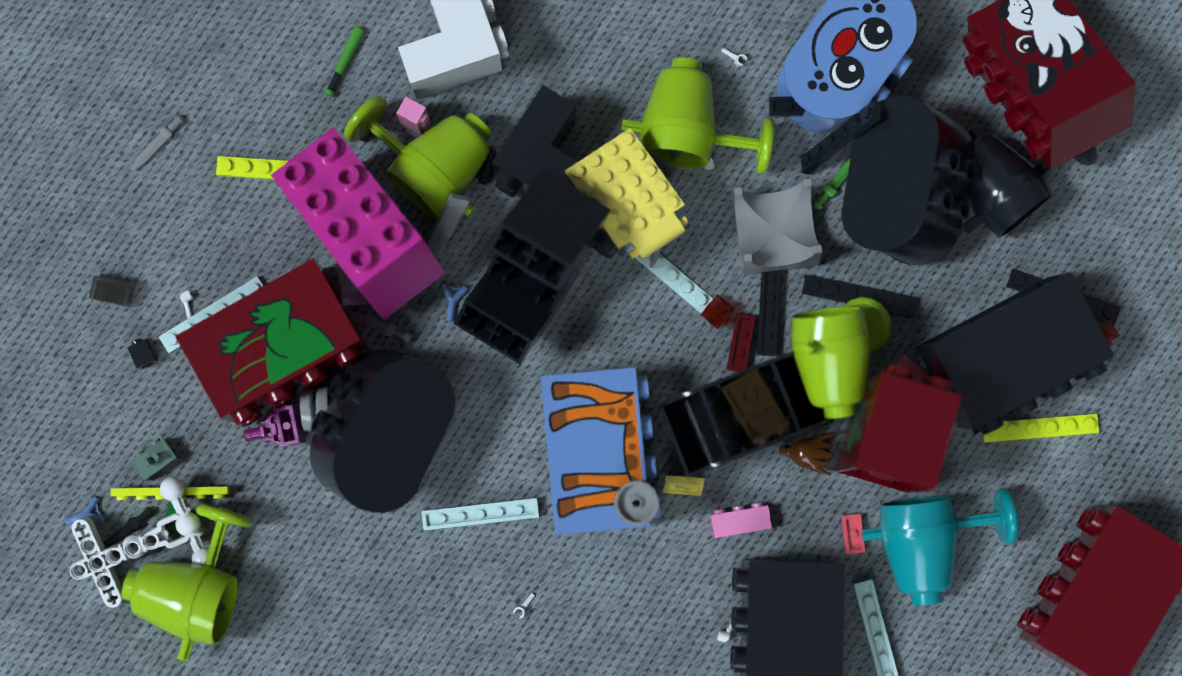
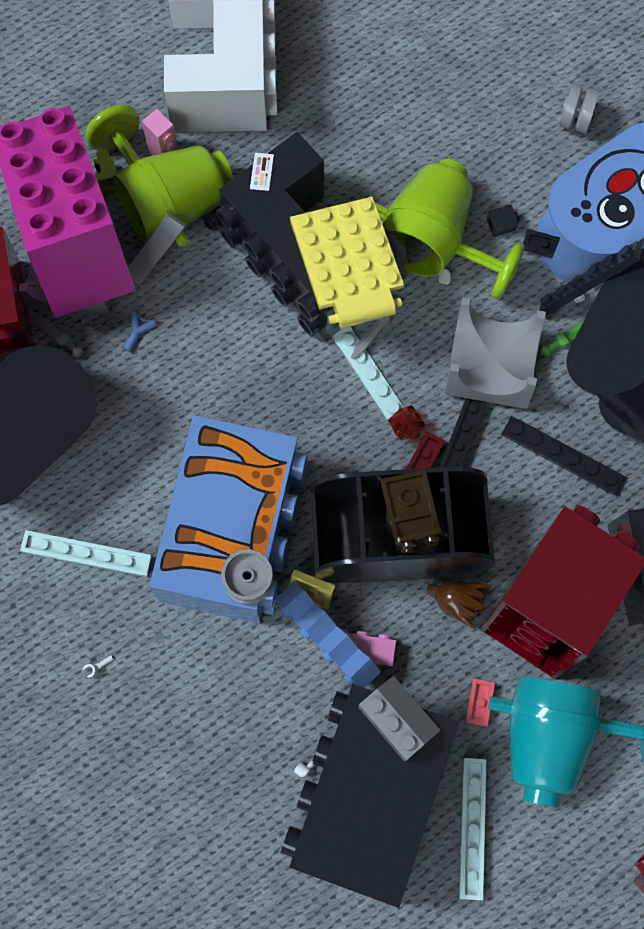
camera: 20 degrees right, 10 degrees down
(351, 45) = (123, 67): bright green piece -> none
(373, 159) = (105, 171): none -> lime hips
(524, 133) = (261, 171): none -> white sticker
(532, 265) = (241, 284): black brick -> none
(711, 522) = (324, 633): none -> medium blue brick
(735, 57) = (504, 184): white hand -> none
(744, 94) = (502, 220): none -> black brick
(796, 578) = (398, 718): none -> light grey slope
(835, 351) = (518, 487): lime piece -> none

